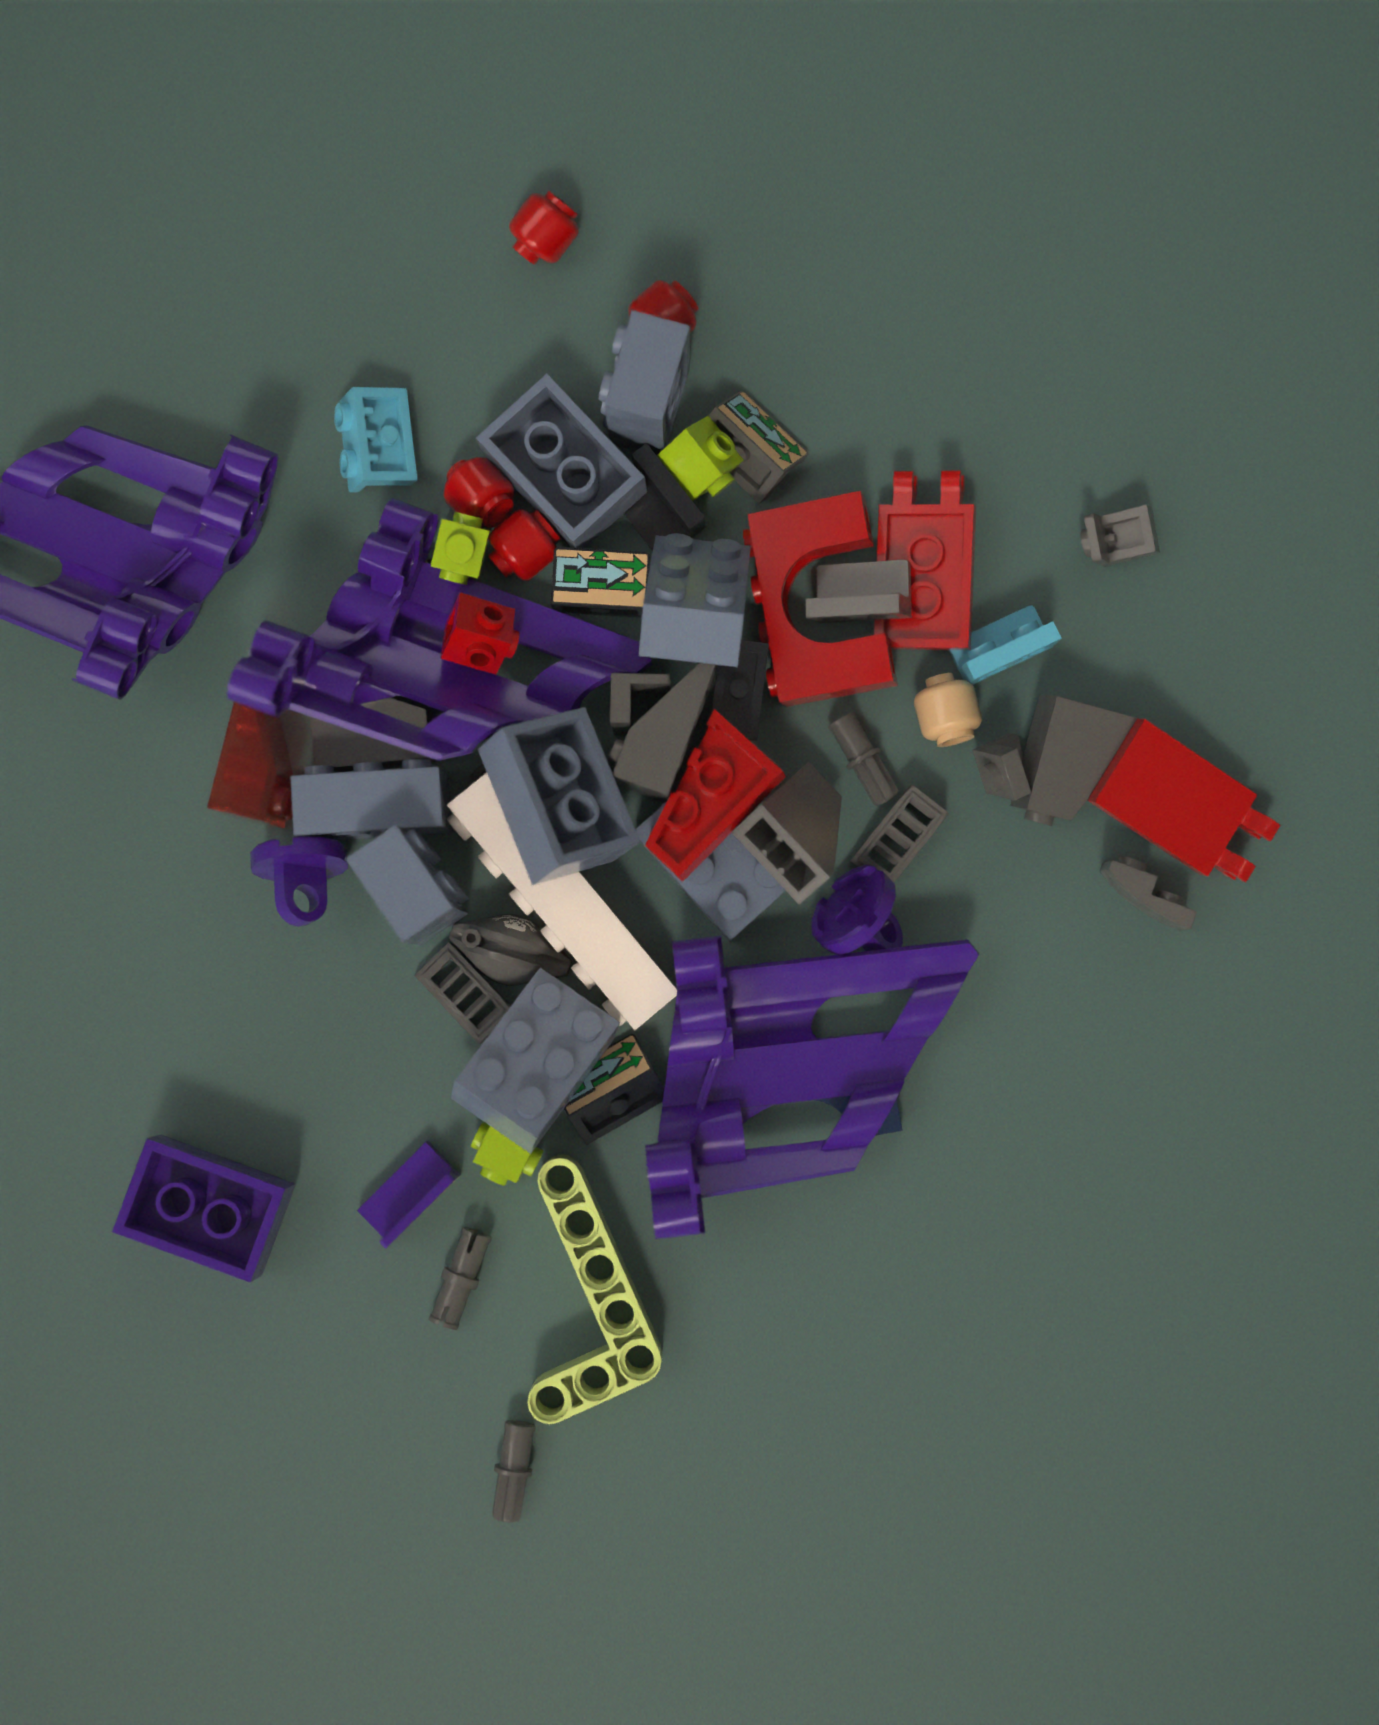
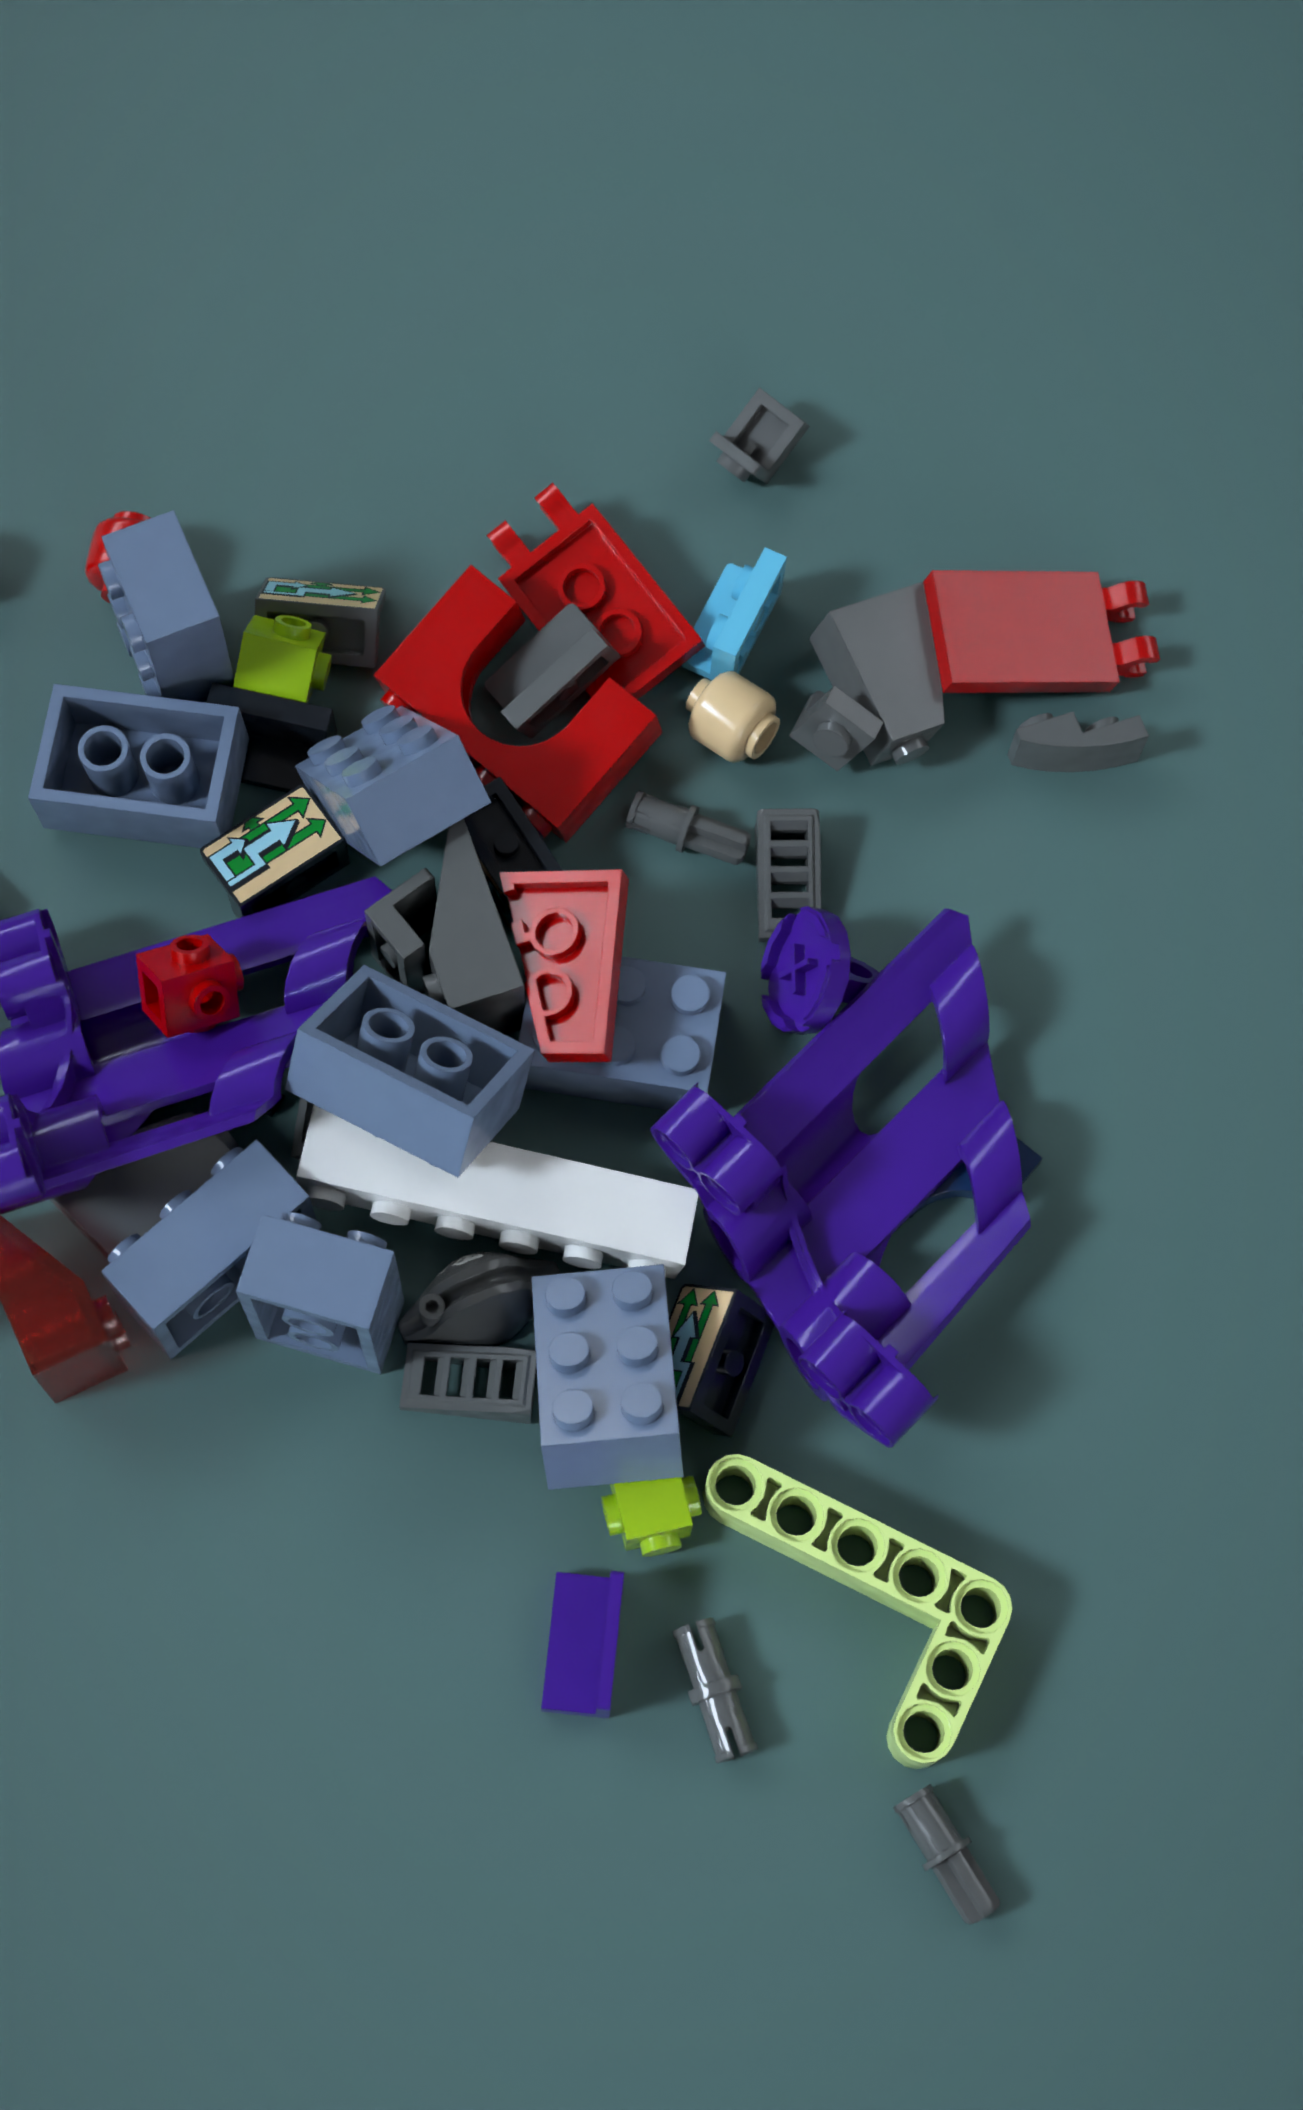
camera: 45 degrees left, 15 degrees down
(203, 1208) = (367, 1837): dark purple brick -> none
(300, 867) = (182, 1377): dark purple tile -> none
(460, 548) = (98, 921): lime brick -> none
(479, 490) = (72, 862): red head -> none
(523, 544) = (162, 877): red head -> none
(796, 832) = (687, 933): dark grey slope -> none

